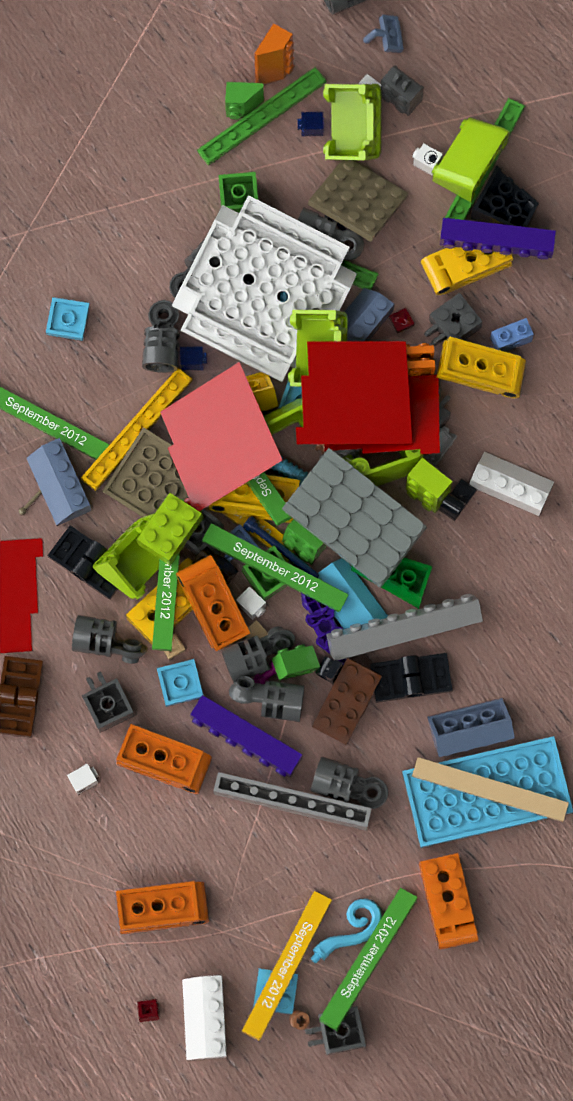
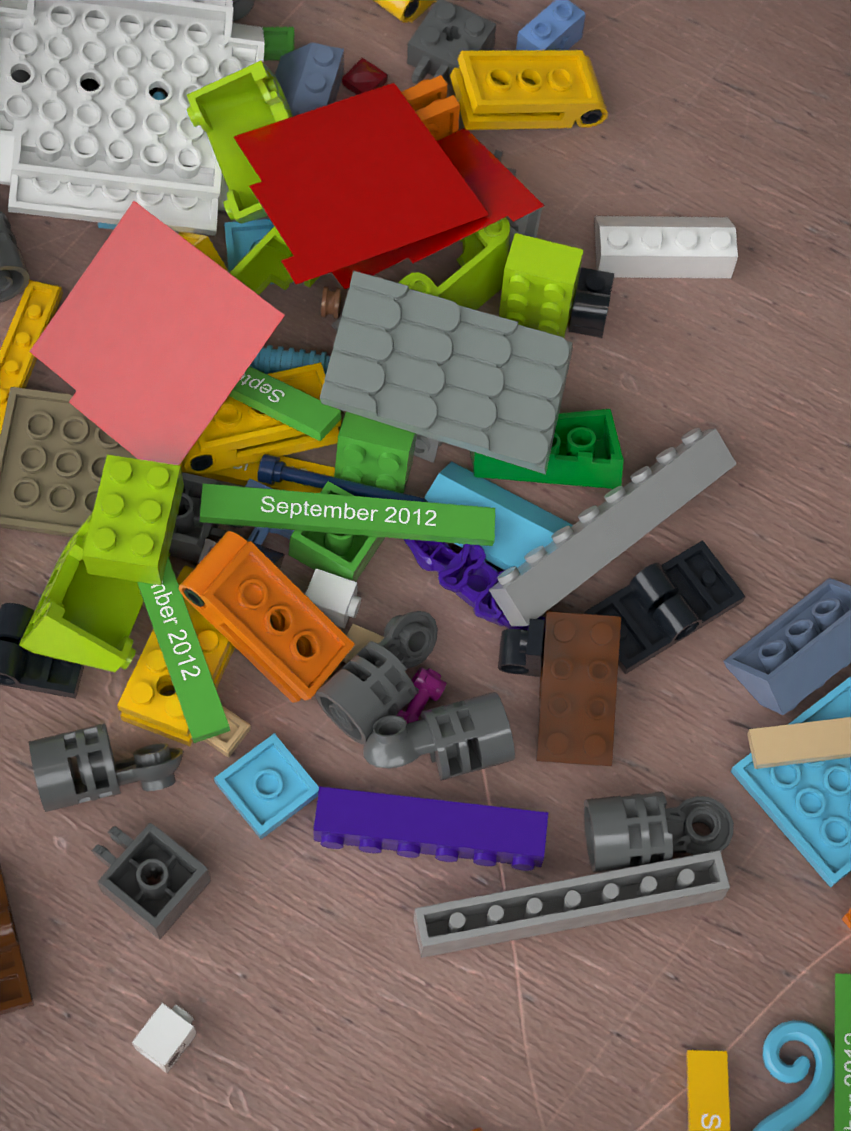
camera: 30 degrees left, 10 degrees down
(182, 764) = (338, 924): orange hinge -> none
(192, 358) = (48, 255): clear blue brick -> none
(295, 662) = (457, 661): bright green brick -> none

